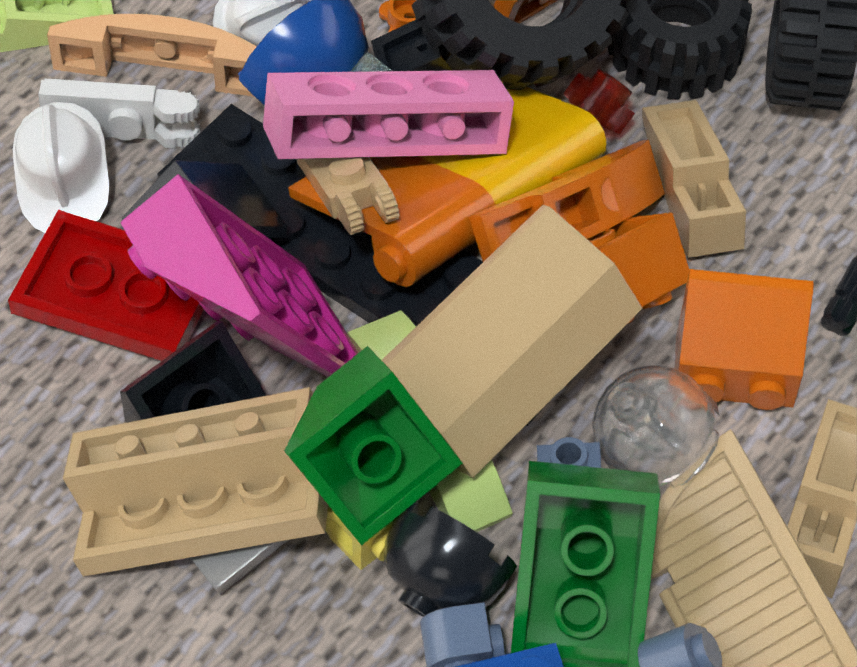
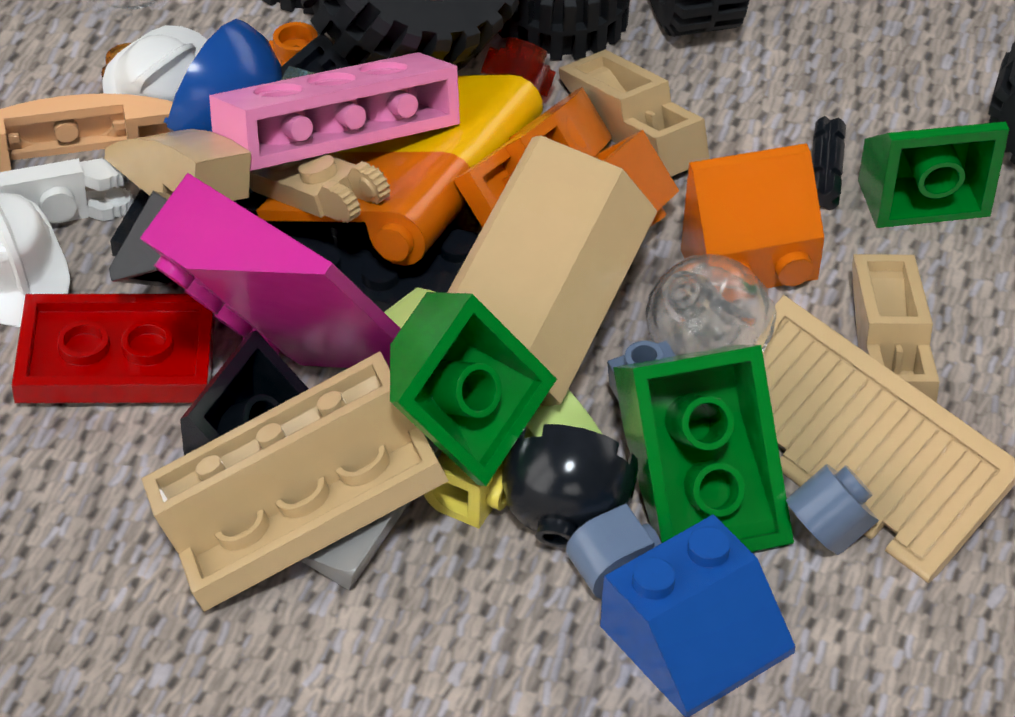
camera: 20 degrees left, 10 degrees down
(231, 131) = (165, 158): none -> tan slope

